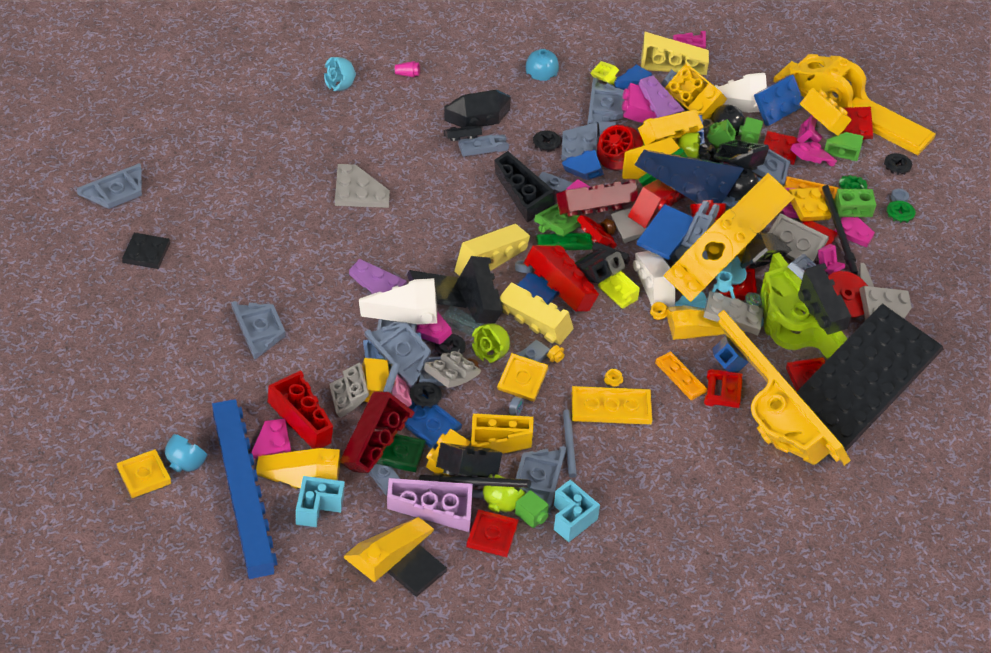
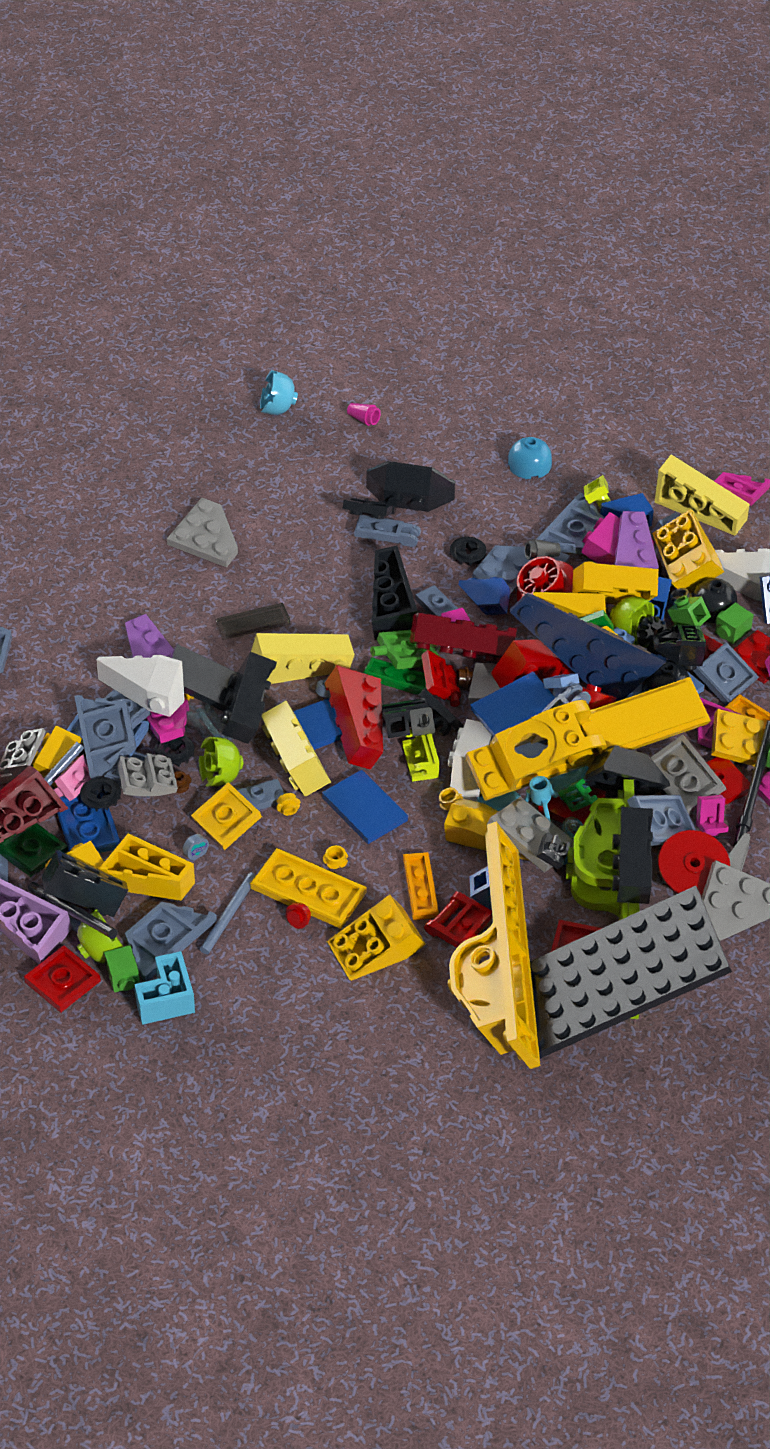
camera: 30 degrees right, 0 degrees up
(436, 238) = (252, 621): none -> clear smoke tile
(597, 124) = (538, 548): none -> dark grey cone
(606, 336) = (364, 806): none -> blue tile
(619, 426) = (298, 915): none -> red plate
(682, 422) = (376, 939): none -> yellow slope
(690, 205) = (560, 682): none -> medium blue tile
(747, 273) = (581, 791): none -> green tile
(760, 317) = (553, 850): none -> black tile

